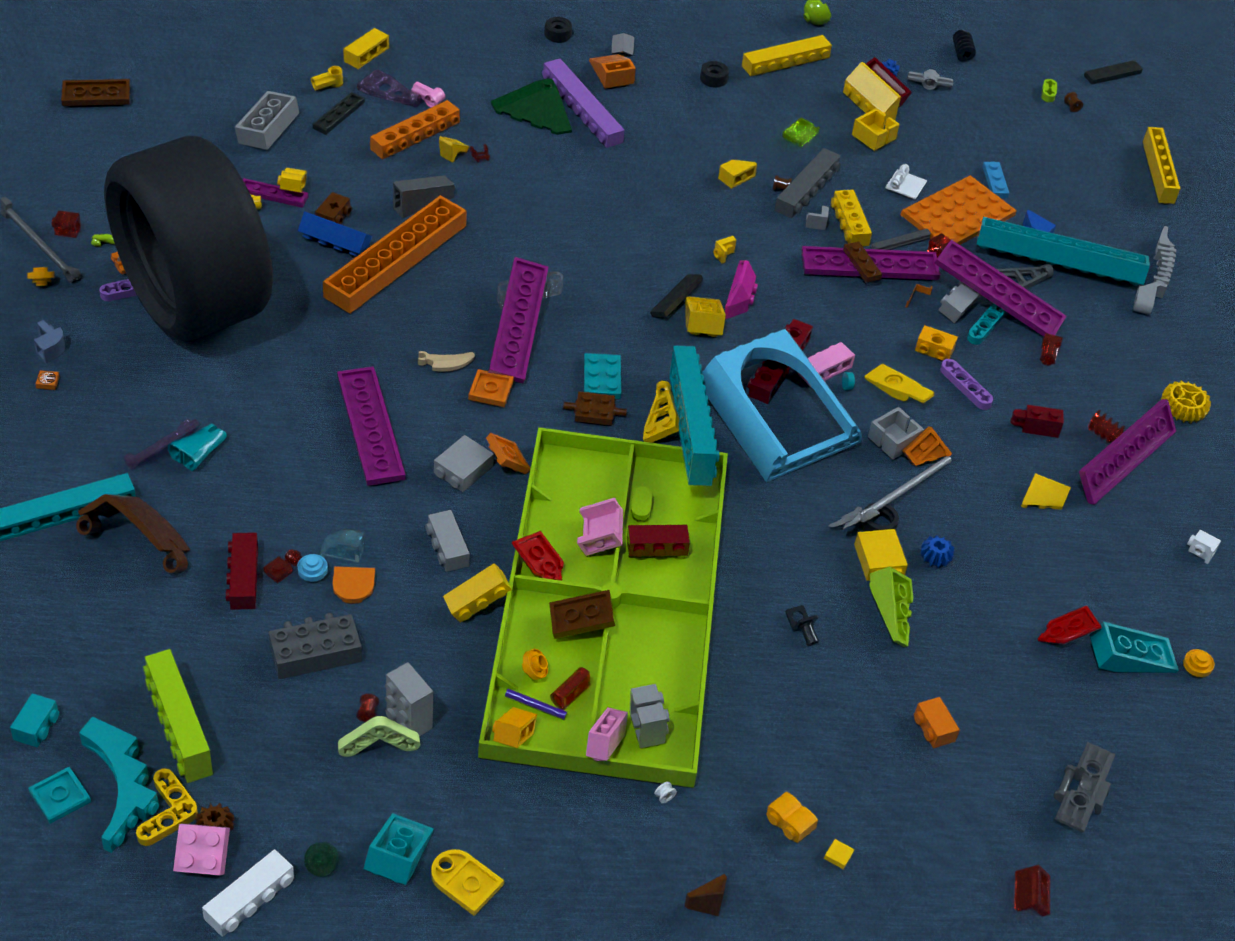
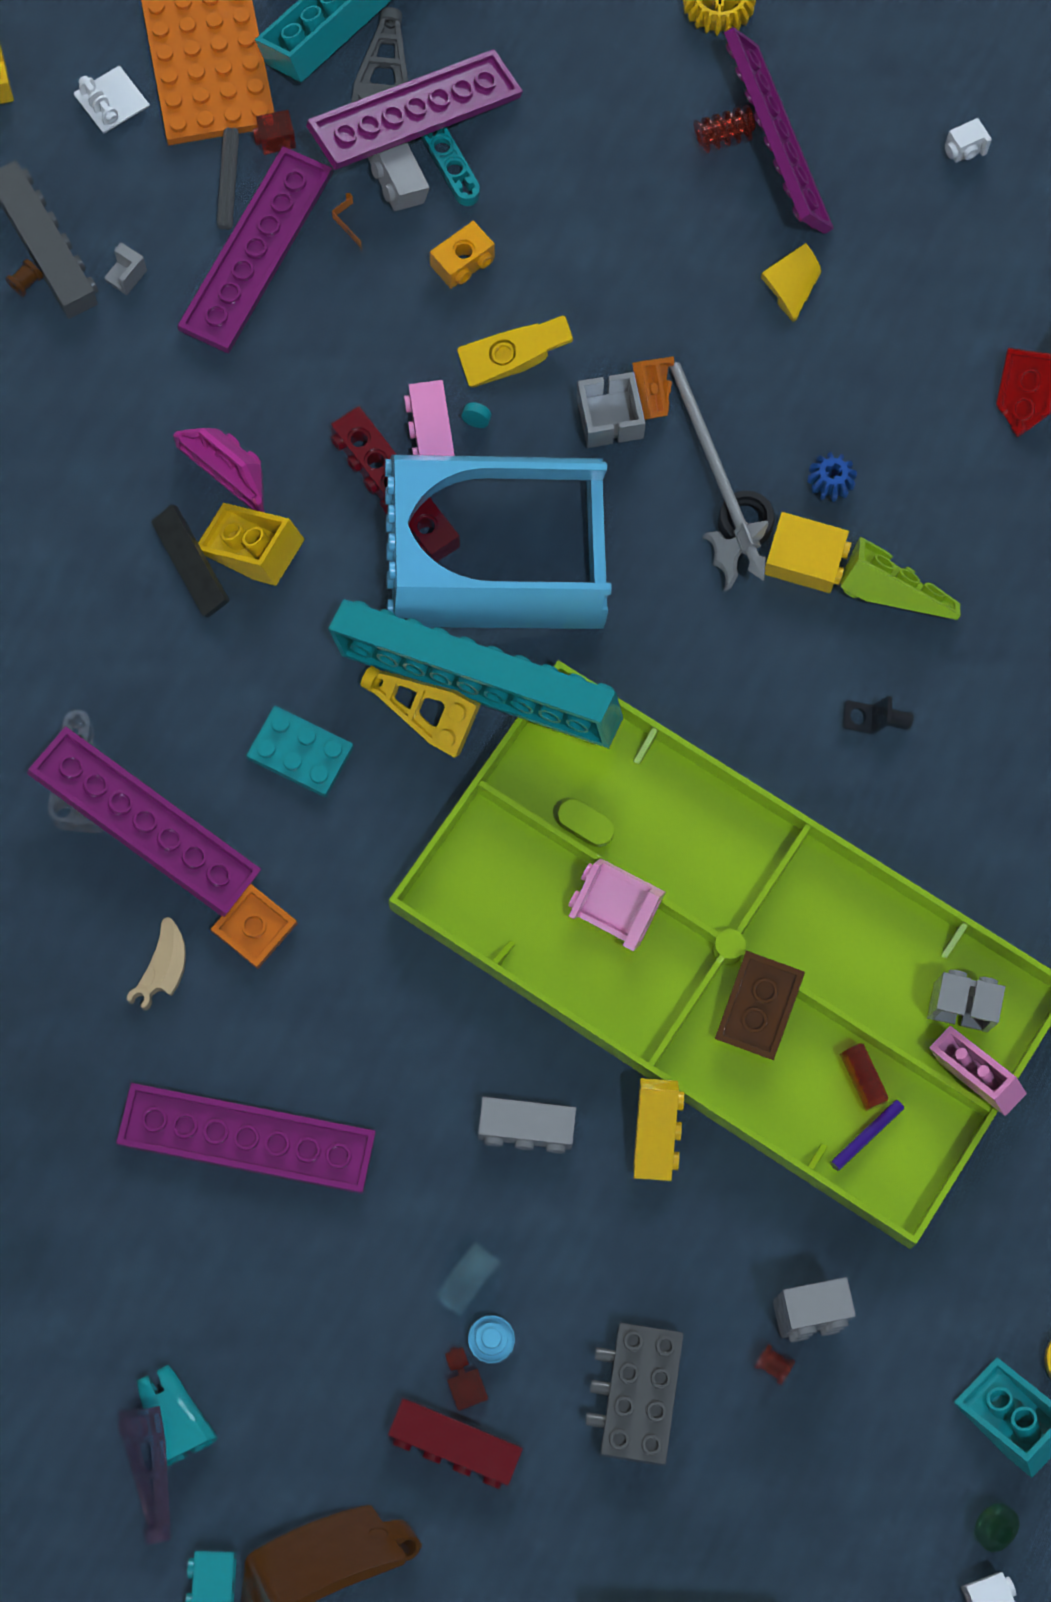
camera: 60 degrees left, 25 degrees up
(353, 583) = (542, 1291): orange tile -> none
(375, 729) = (843, 1375): yellowish green beam -> none
(463, 463) = (390, 1036): light grey brick -> none
(508, 453) = (406, 964): orange plate -> none
(514, 727) = (910, 1184): light orange brick -> none
(535, 664) = (813, 1108): light orange plate -> none
(540, 556) = (631, 1012): red tile -> none
(594, 408) = (362, 795): reddish brown plate -> none
(658, 540) = (670, 837): dark red brick -> none
(724, 247) = (124, 441): yellow bracket -> none
(851, 217) = (150, 221): yellow brick -> none
(862, 261) = (257, 260): reddish brown plate -> none
(980, 397) = (550, 254): medium lavender beam -> none
(1039, 420) = (669, 207): dark red brick -> none
(1050, 348) = (536, 103): clear red piece -> none

